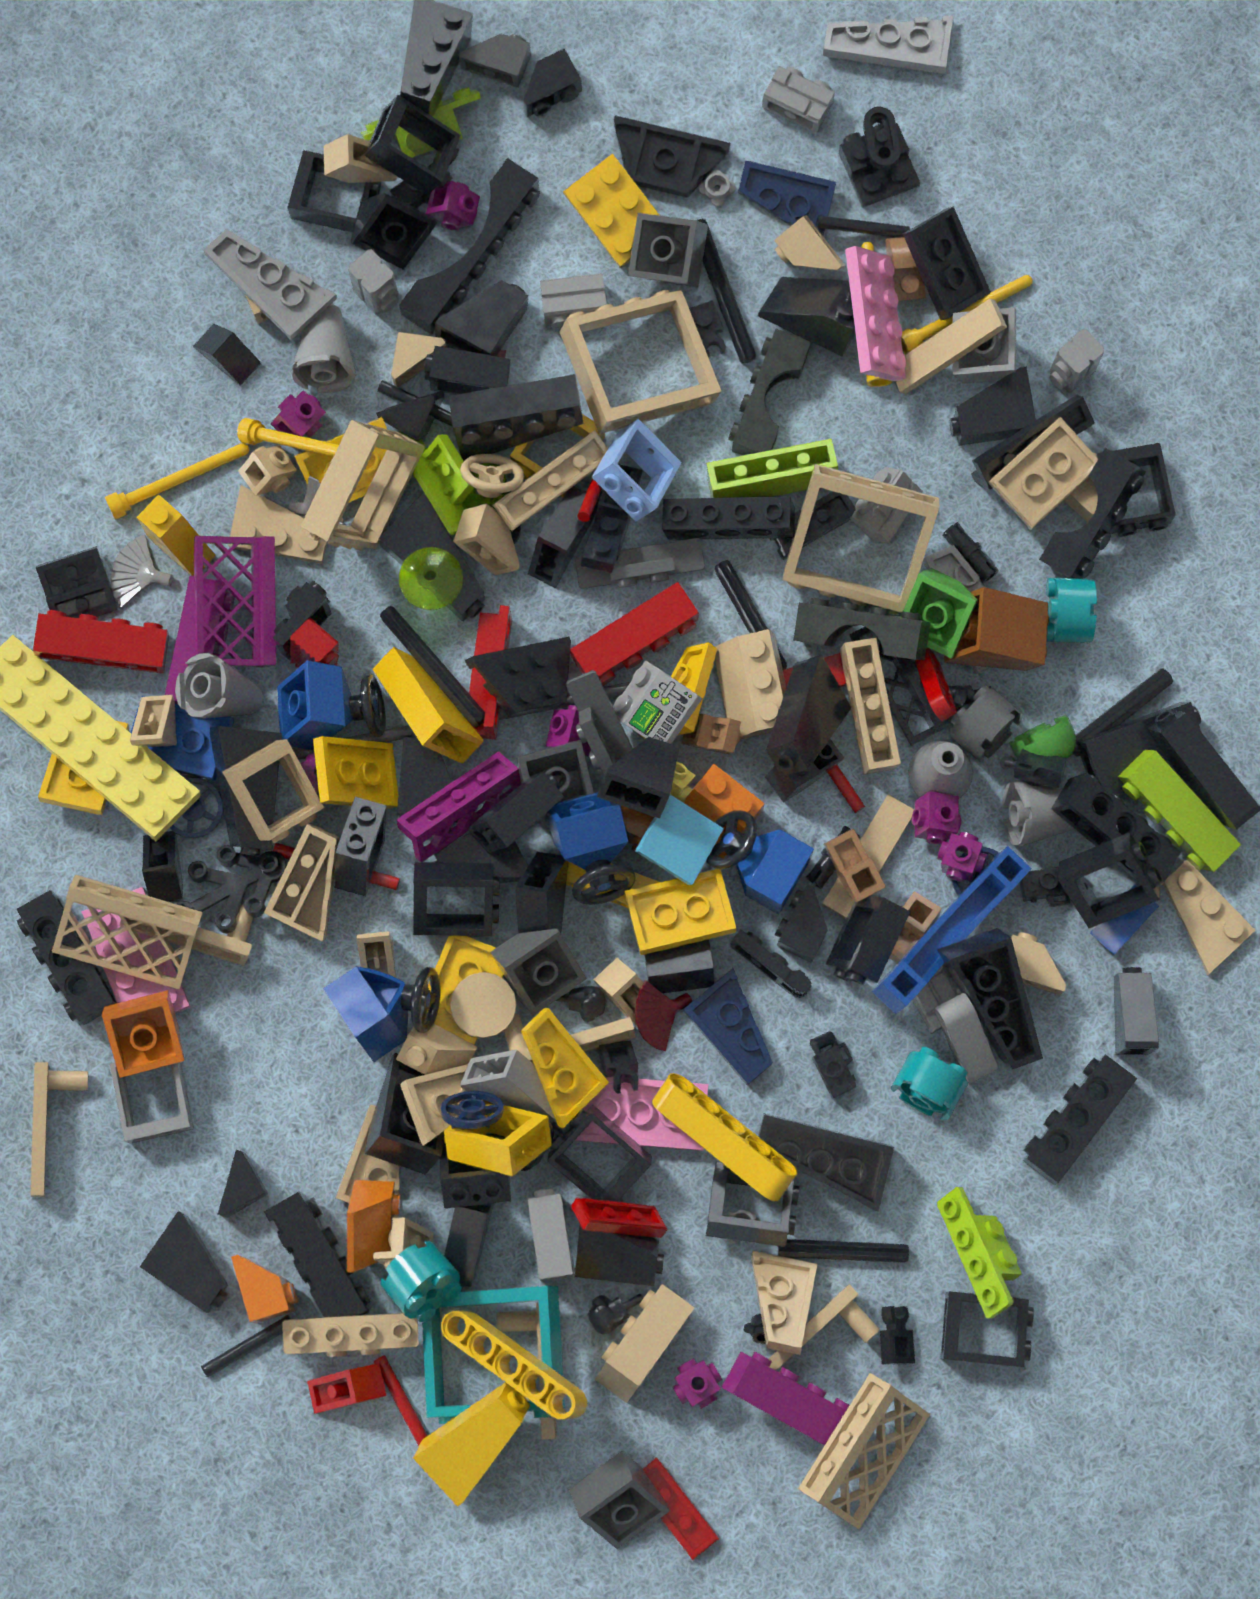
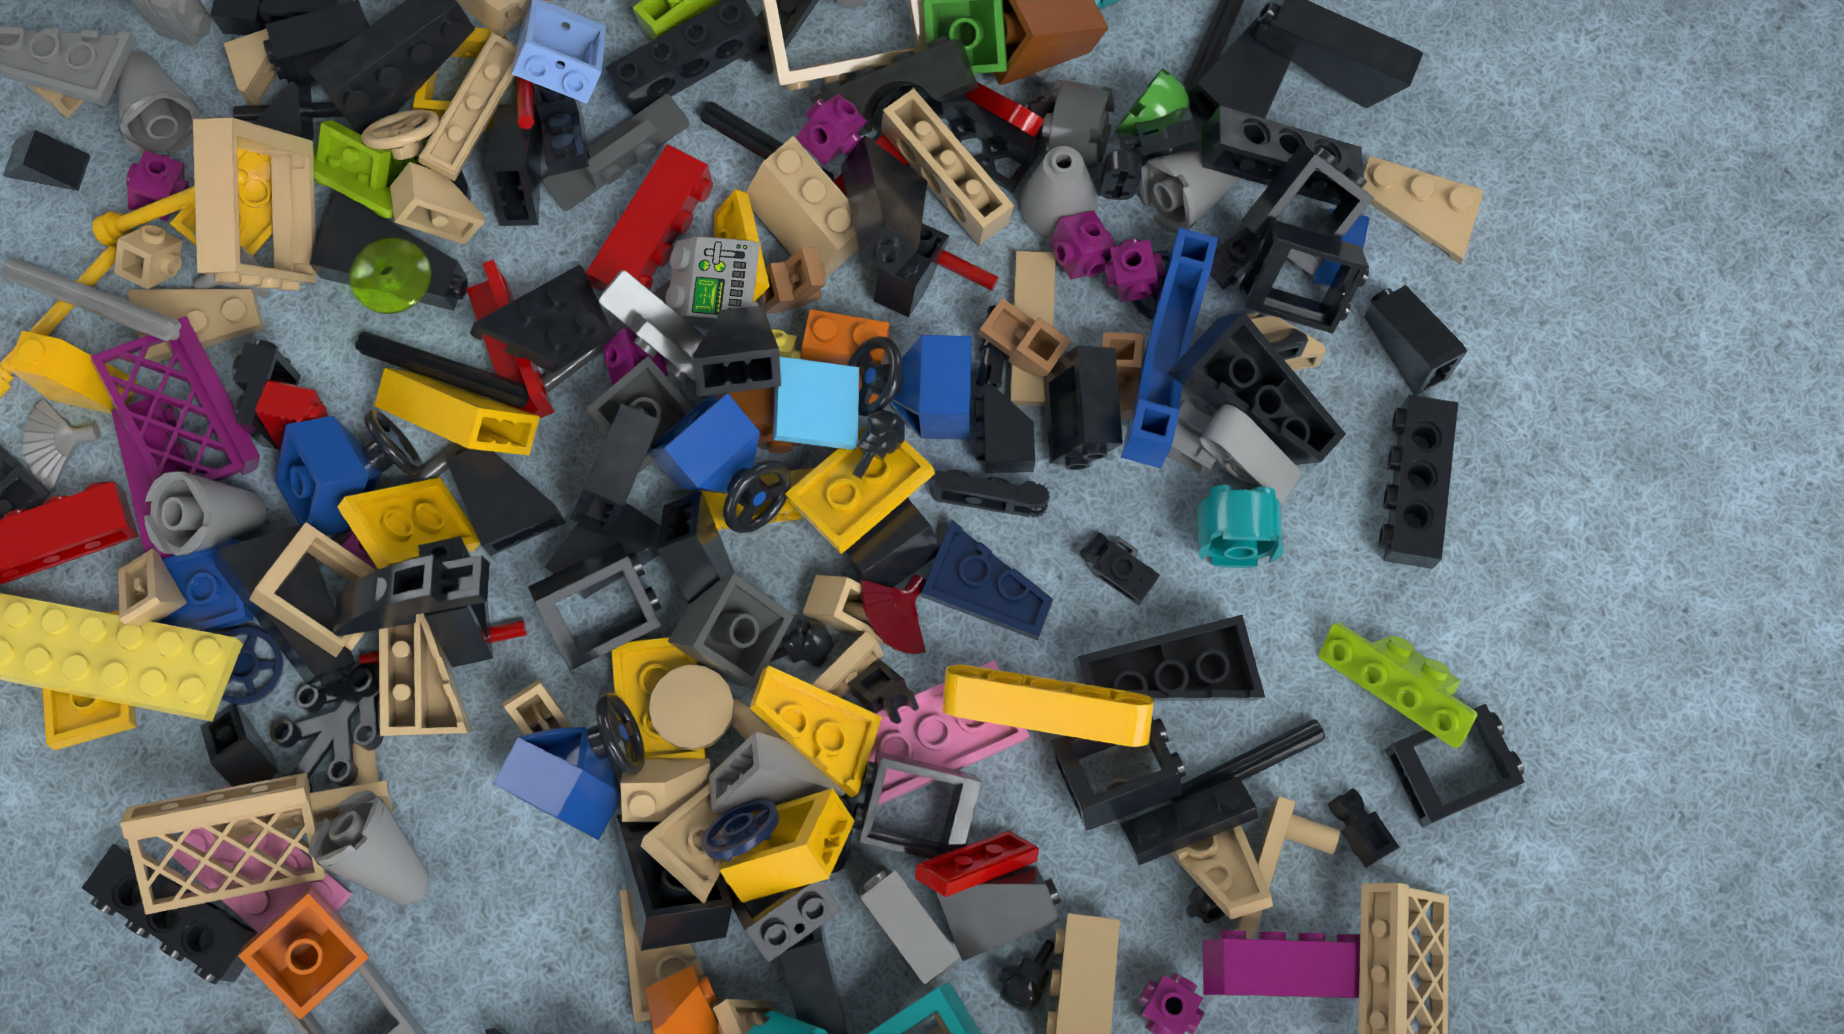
camera: 25 degrees left, 5 degrees down
(213, 484) = (91, 300): none -> light grey axle
(219, 987) = (370, 850): none -> light grey cone
(333, 830) = (409, 588): none -> black slope
(458, 801) = (539, 496): magenta fence -> none
(712, 887) = (882, 436): none -> black piece
(779, 1267) = (1189, 820): none -> black plate
(805, 638) = (831, 129): none -> magenta brick
(992, 780) = (1120, 175): none -> black beam
(1034, 968) = (1288, 342): none -> black slope
(1080, 961) = (1268, 260): none -> black window
(1179, 811) = (1334, 105): lime brick -> none

